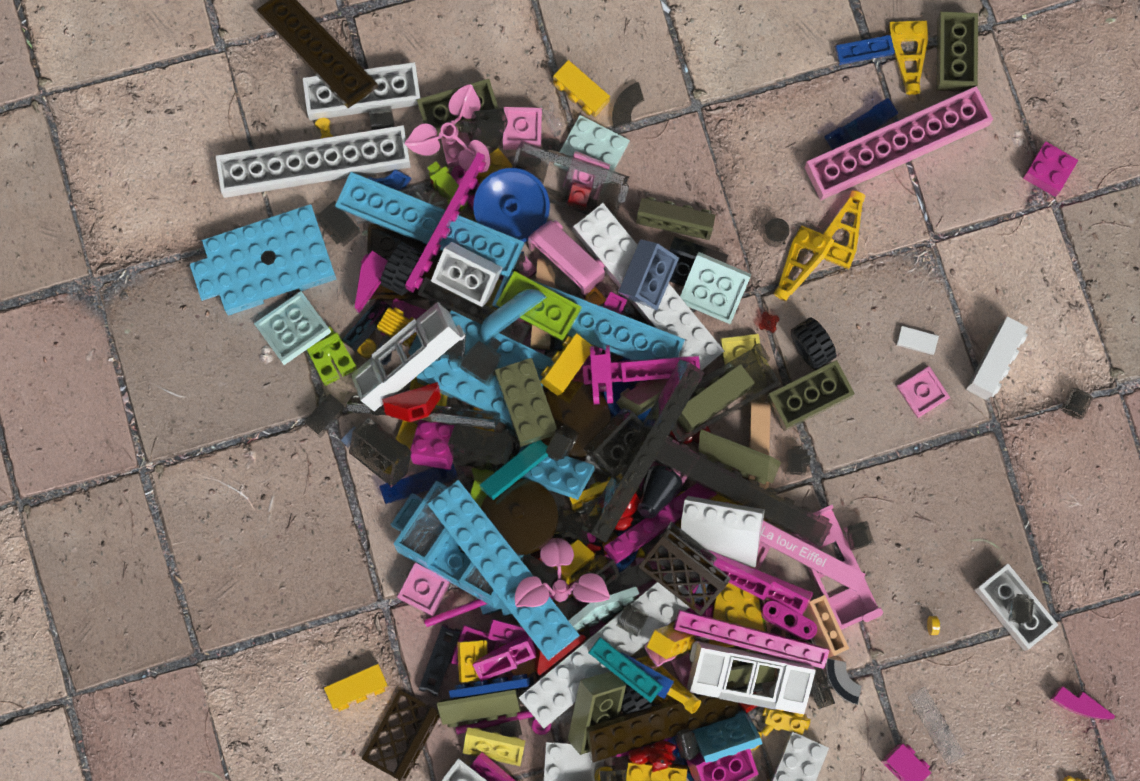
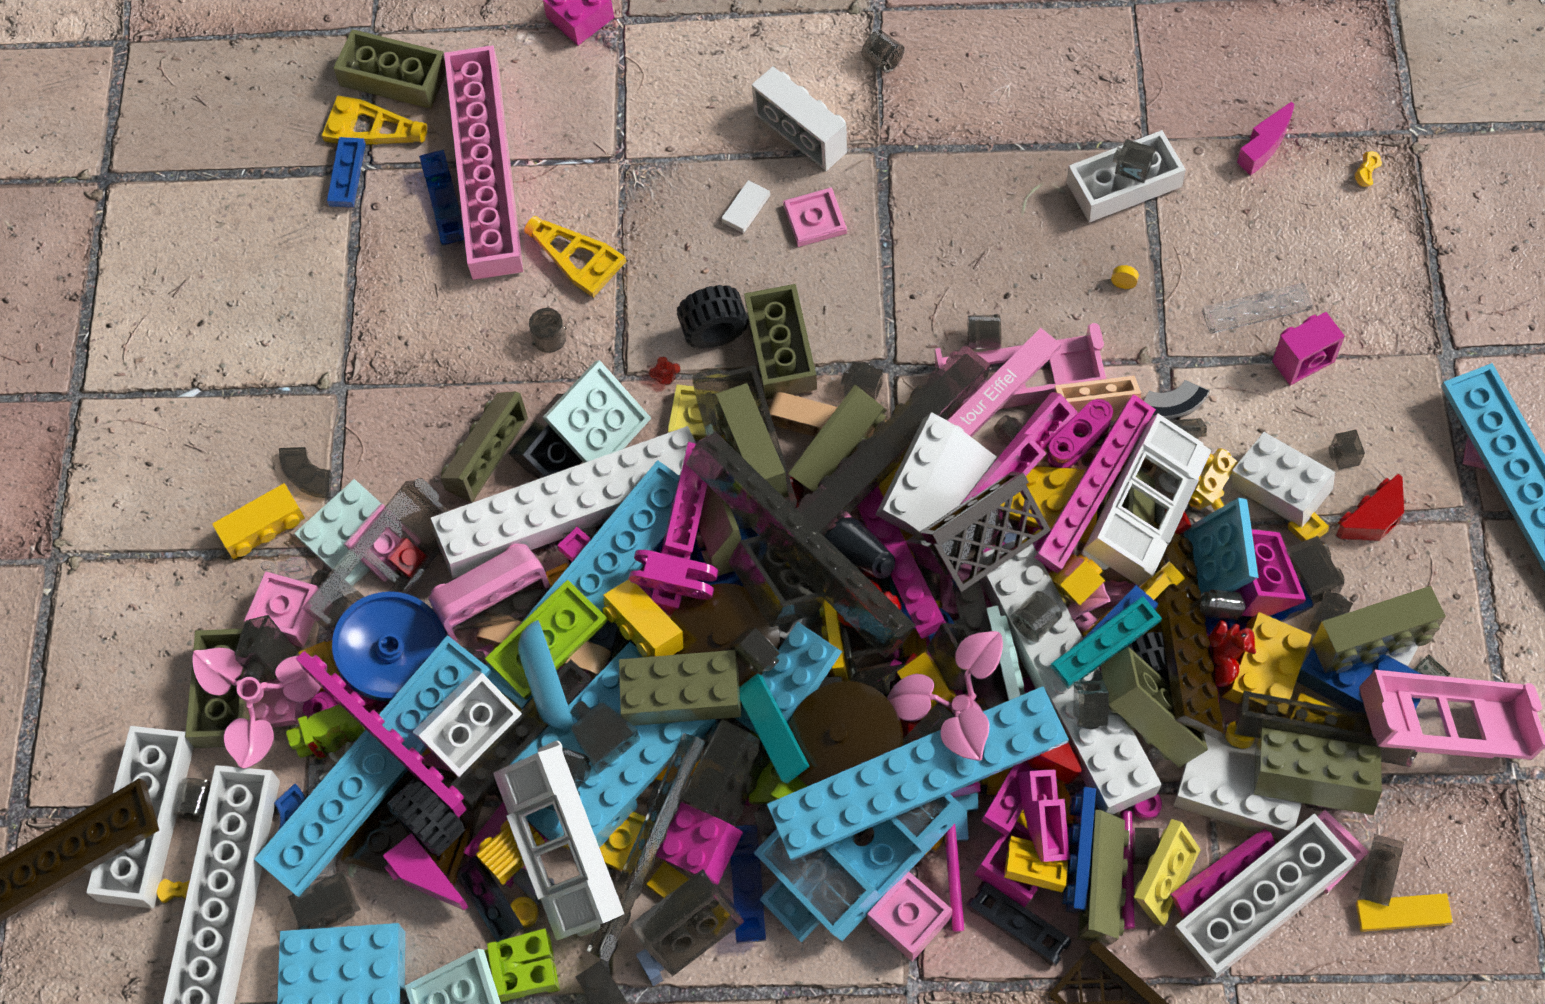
camera: 65 degrees left, 15 degrees down
(413, 403) = (632, 852): red slope -> none
(575, 670) = (1091, 704): none -> clear smoke brick
(648, 274) = (551, 482): sand blue slope -> none
(786, 572) = (1007, 429): none -> clear smoke brick
(812, 241) = (572, 294): yellow plate -> none

